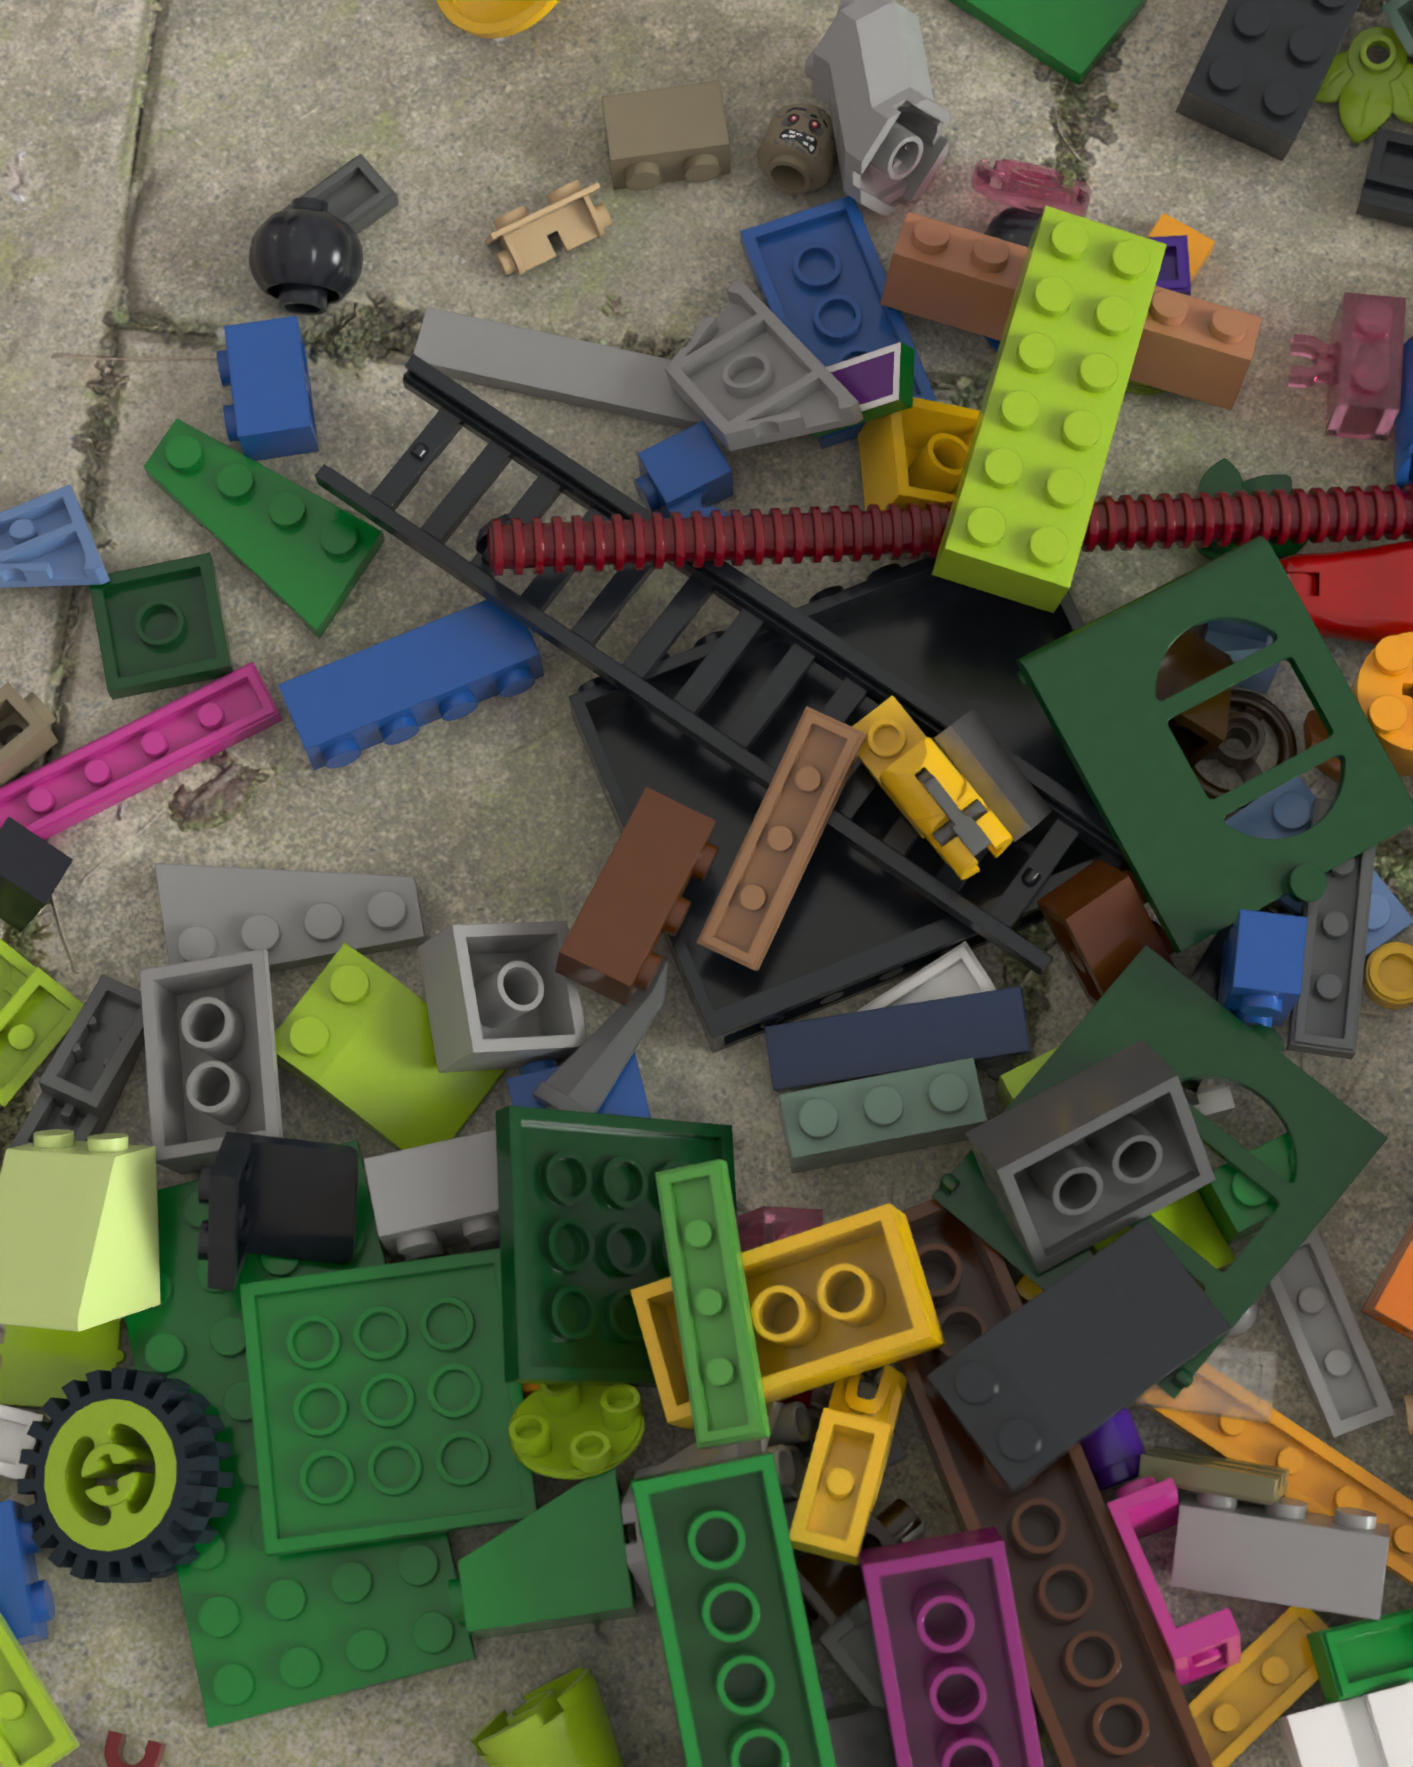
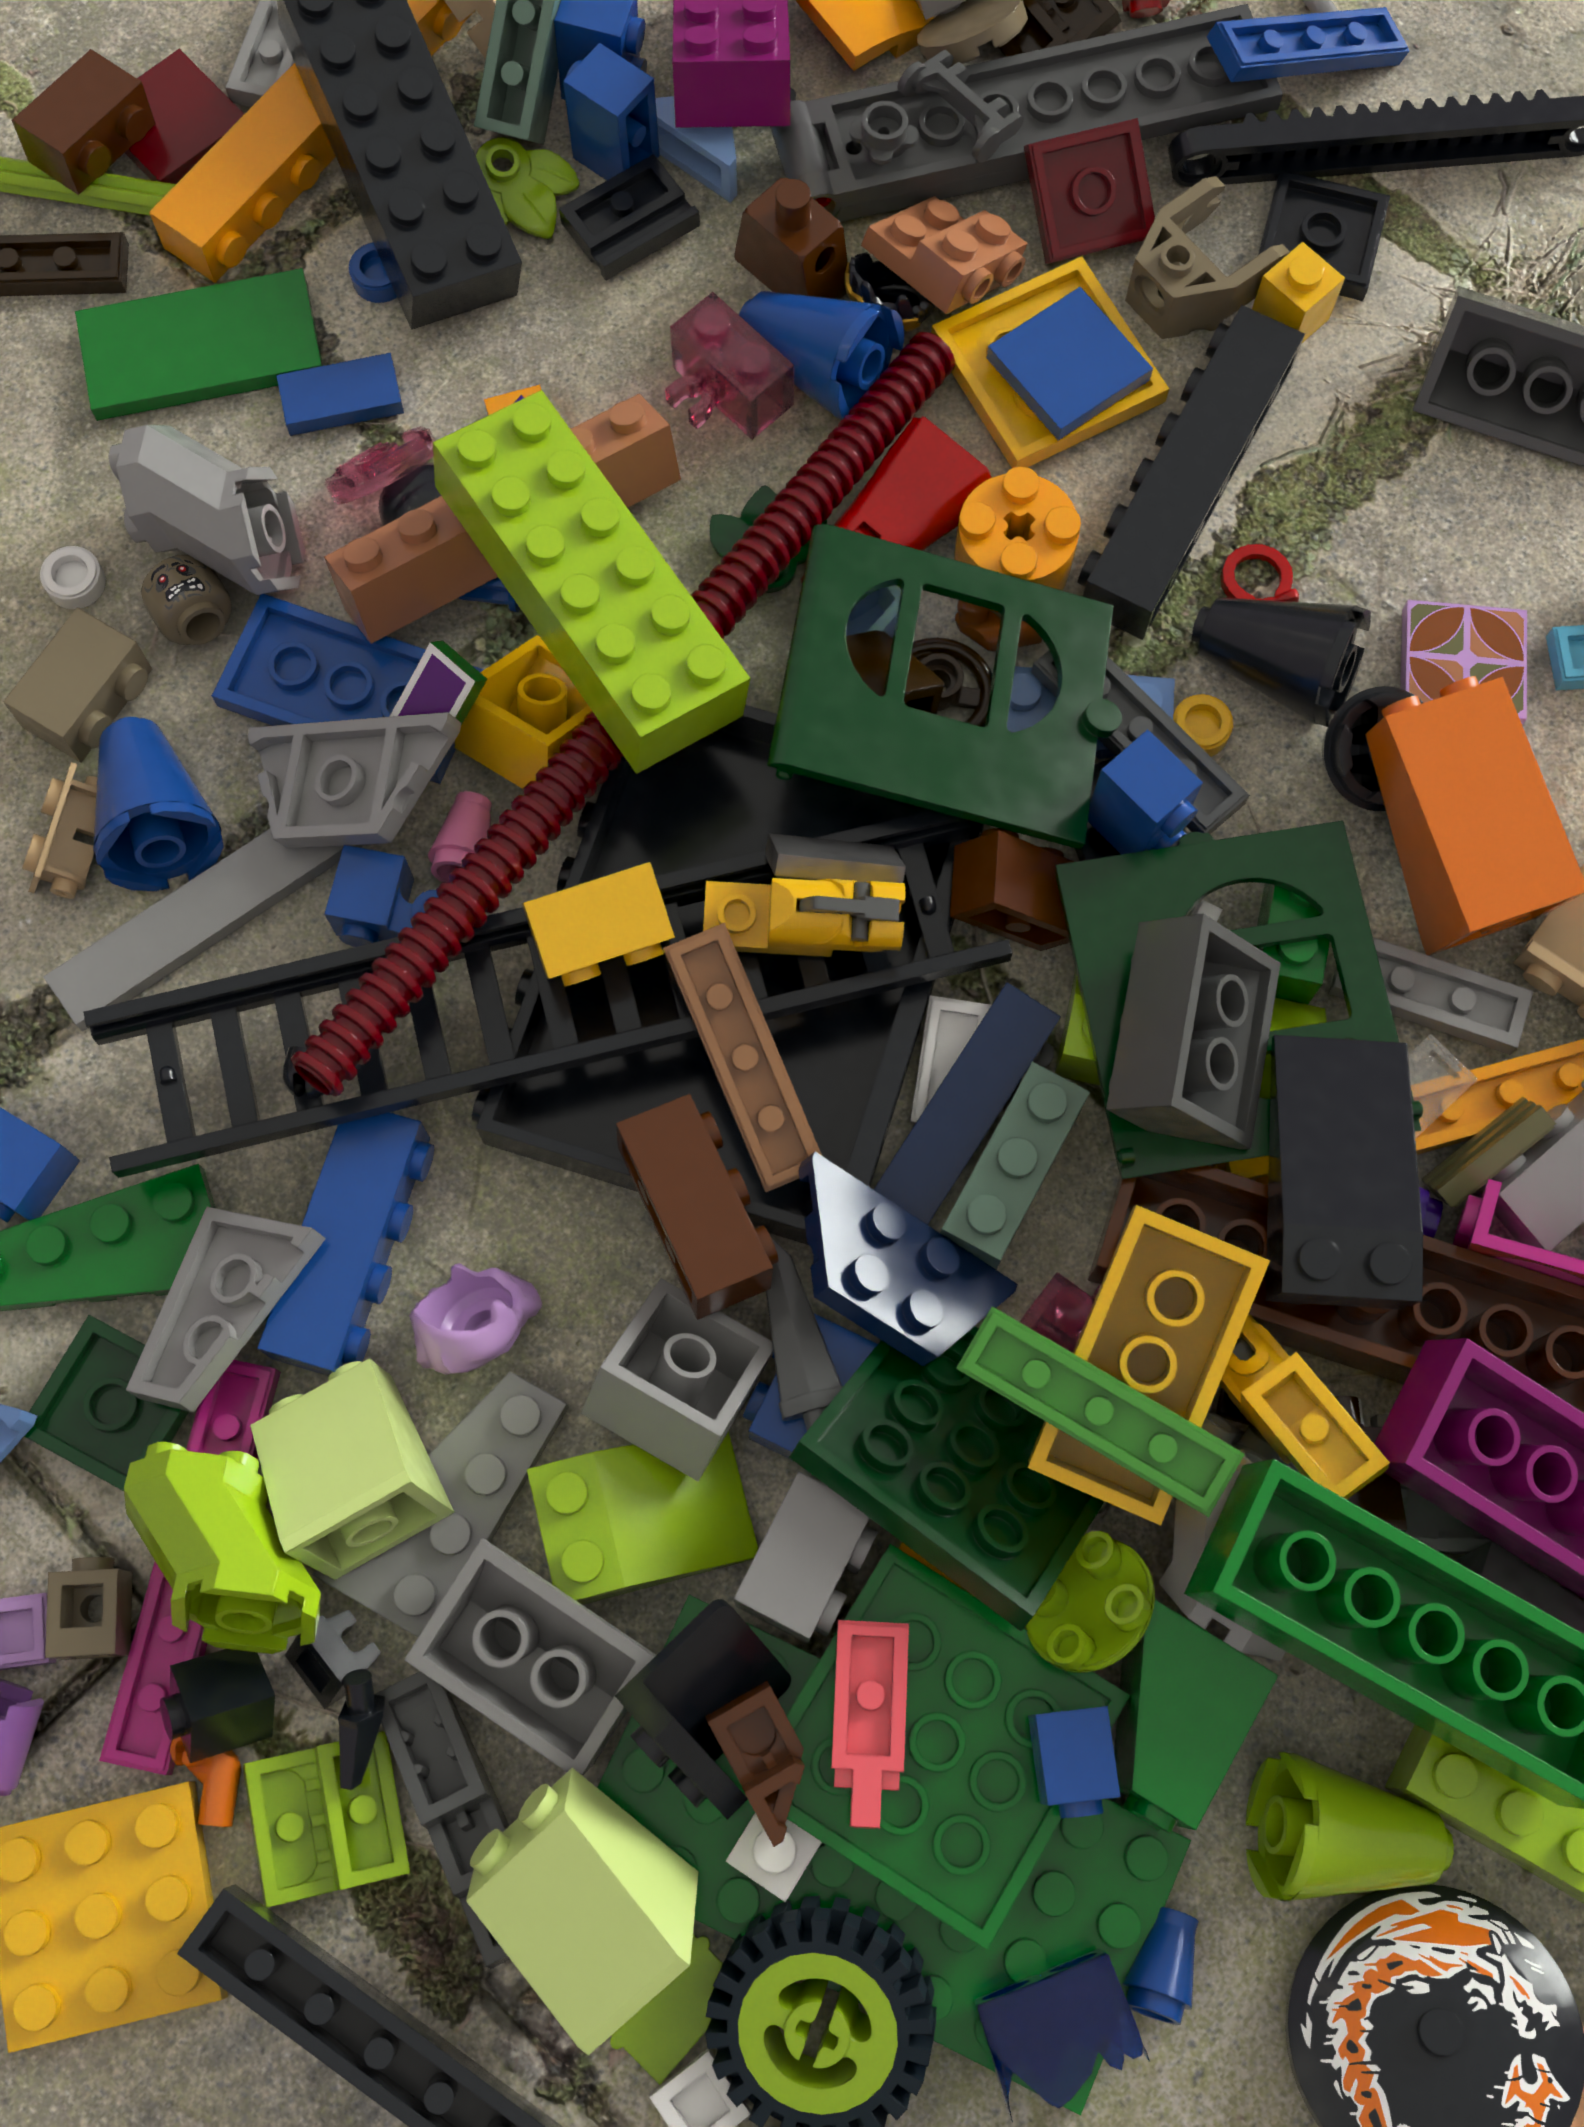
camera: 55 degrees left, 0 degrees up
(72, 982) = (358, 1726): none -> black bar
(101, 922) = (329, 1659): none -> black tile
(113, 779) = (220, 1548): none -> lime brick
(214, 1347) = (769, 1866): none -> white plate
(242, 821) = (347, 1471): none -> yellowish green slope
(248, 1642) = (1056, 2025): none -> clear blue piece
(274, 1276) = (762, 1754): none -> reddish brown slope
(287, 629) = (217, 1302): none -> light grey wing
(362, 1328) = (869, 1714): none -> coral hinge
(362, 1709) = (1164, 1969): none -> blue cone
(428, 816) = (471, 1319): none -> lavender hair
(449, 1503) = (1074, 1760): none -> blue brick
(611, 265) = (149, 811): none -> blue cone
(716, 1080) = (892, 1268): none -> dark blue wing
(749, 57) = (72, 577): none -> white tile
(789, 645) = (599, 922): none -> yellow brick
(800, 491) = (461, 830): none -> bright pink cone
(1072, 108) = (340, 394): none -> blue tile
(1191, 41) = (370, 275): none -> blue tile

